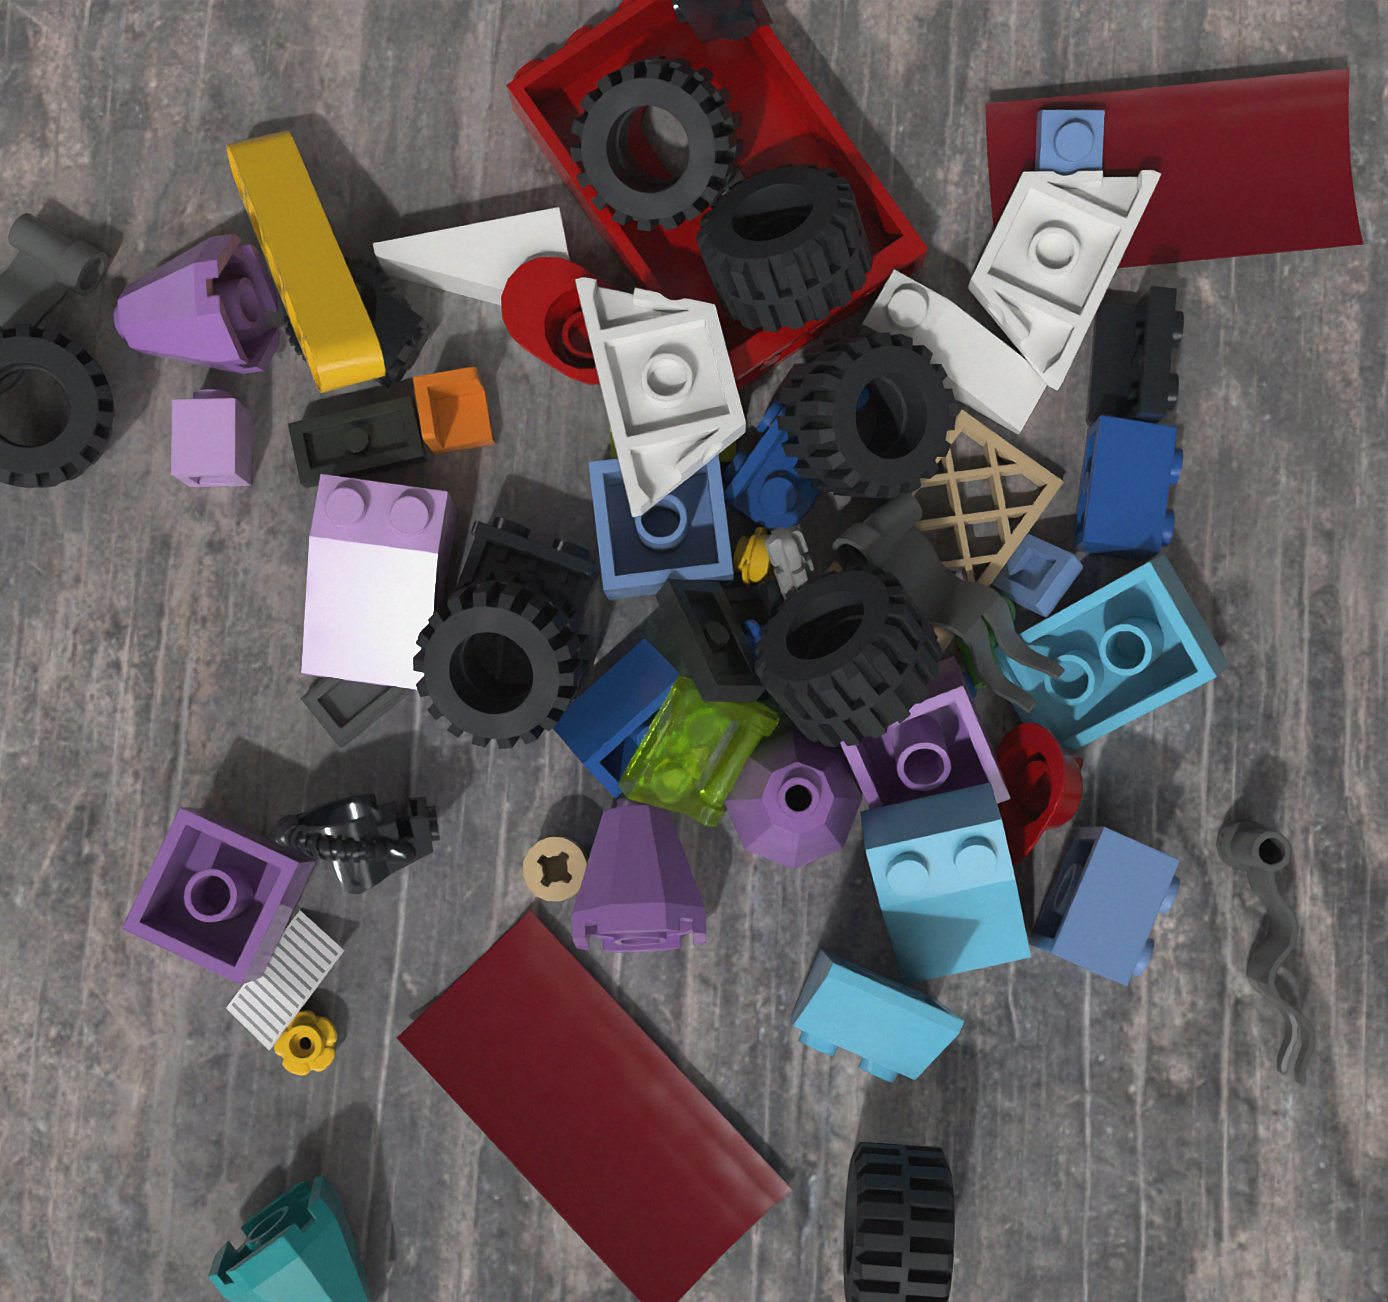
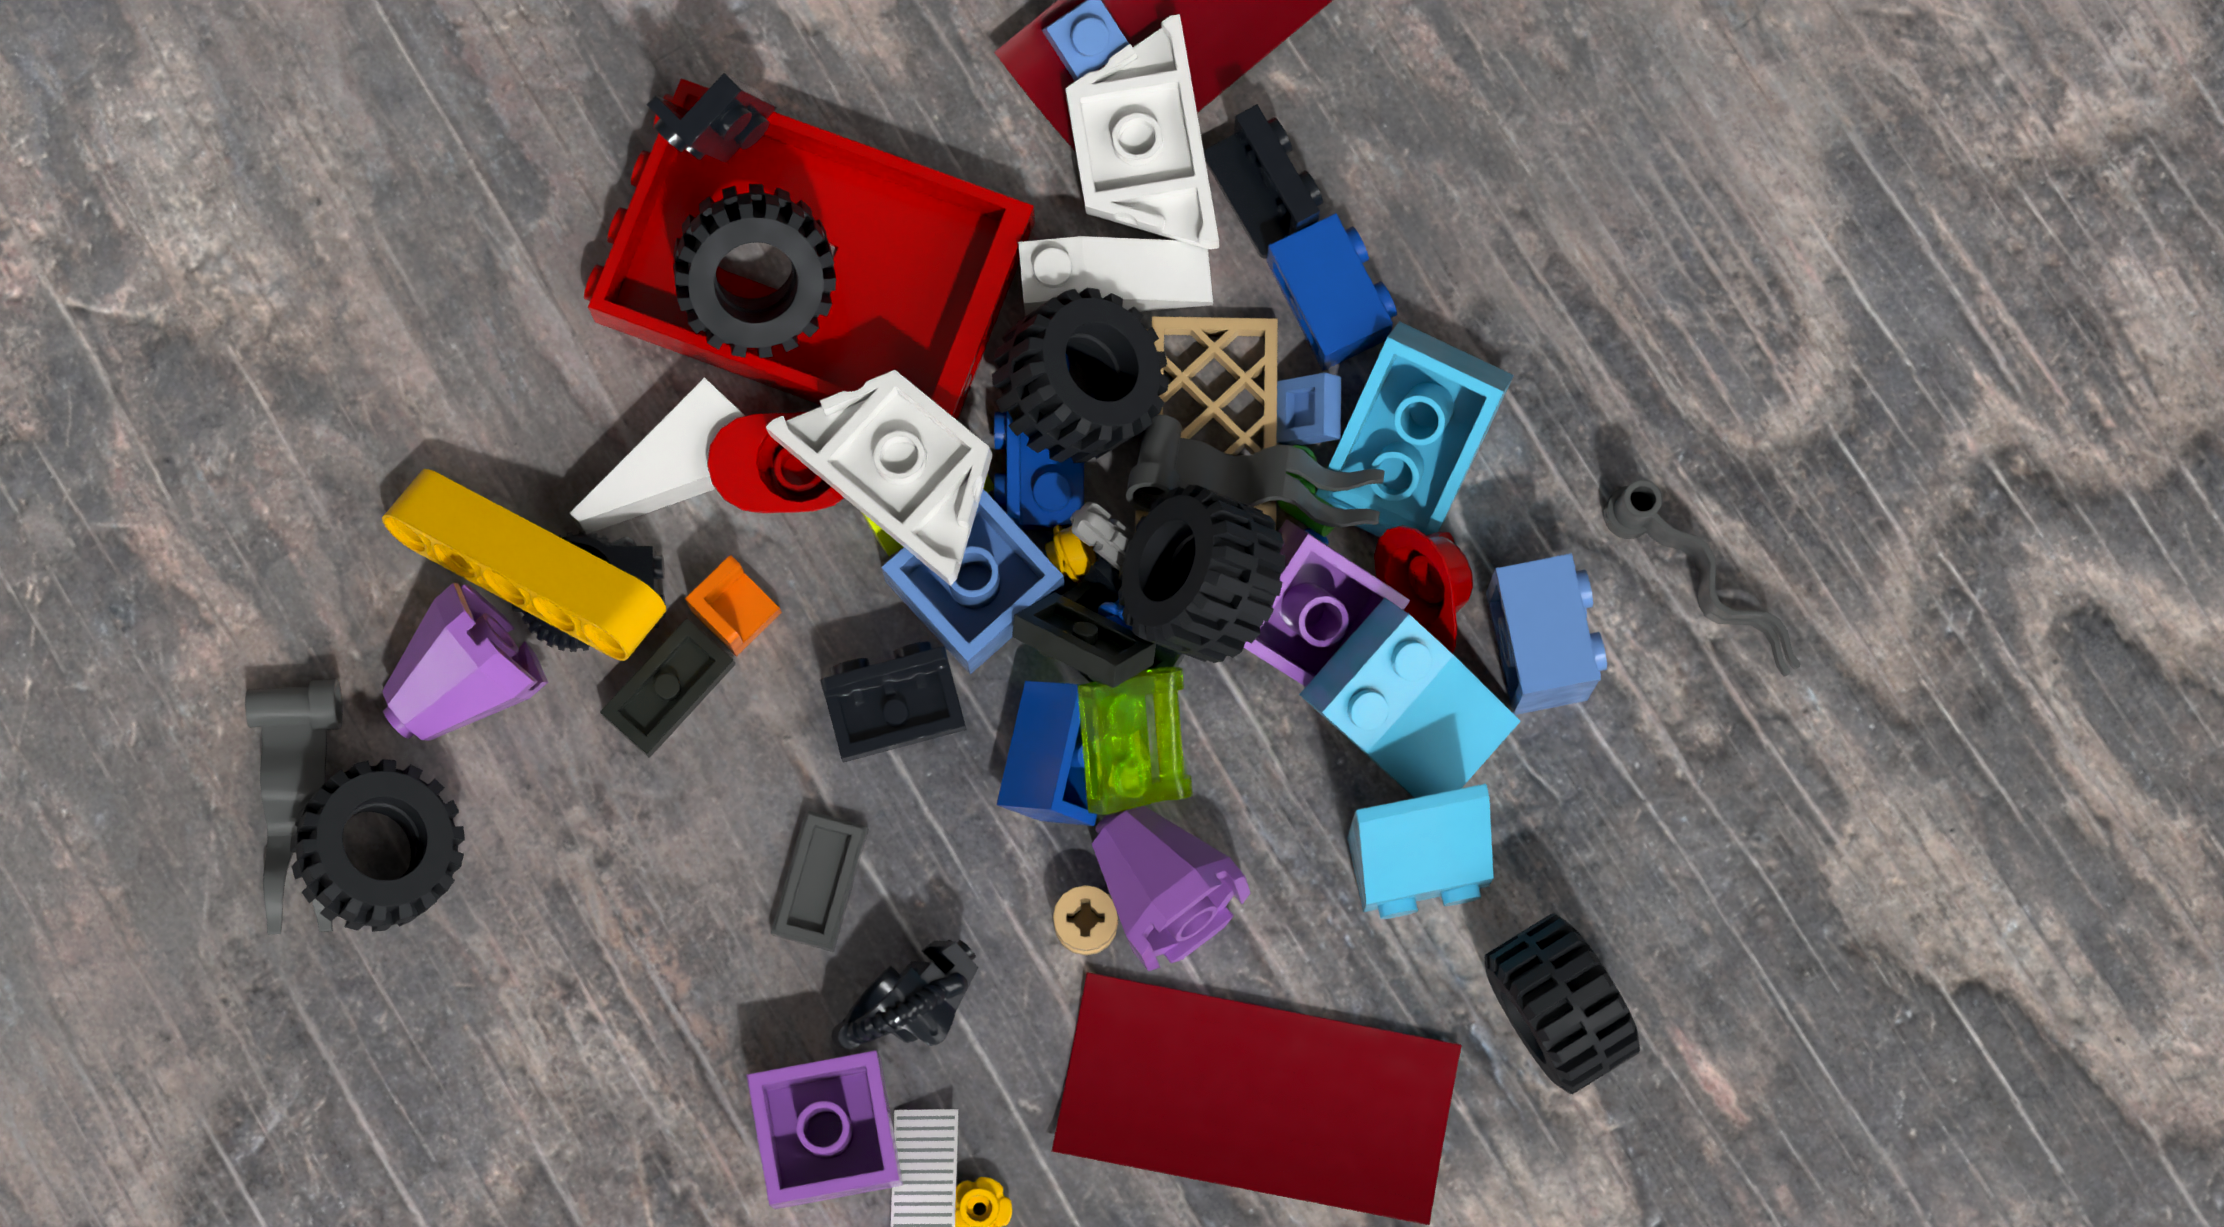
camera: 40 degrees left, 5 degrees down
(211, 440) = (544, 770): lavender brick -> none
(374, 578) = (769, 791): slope -> none
(468, 692) = (930, 826): black tyre -> none
(766, 821) = (1235, 756): medium lavender cone -> none
(785, 247) = (917, 284): black tyre -> none

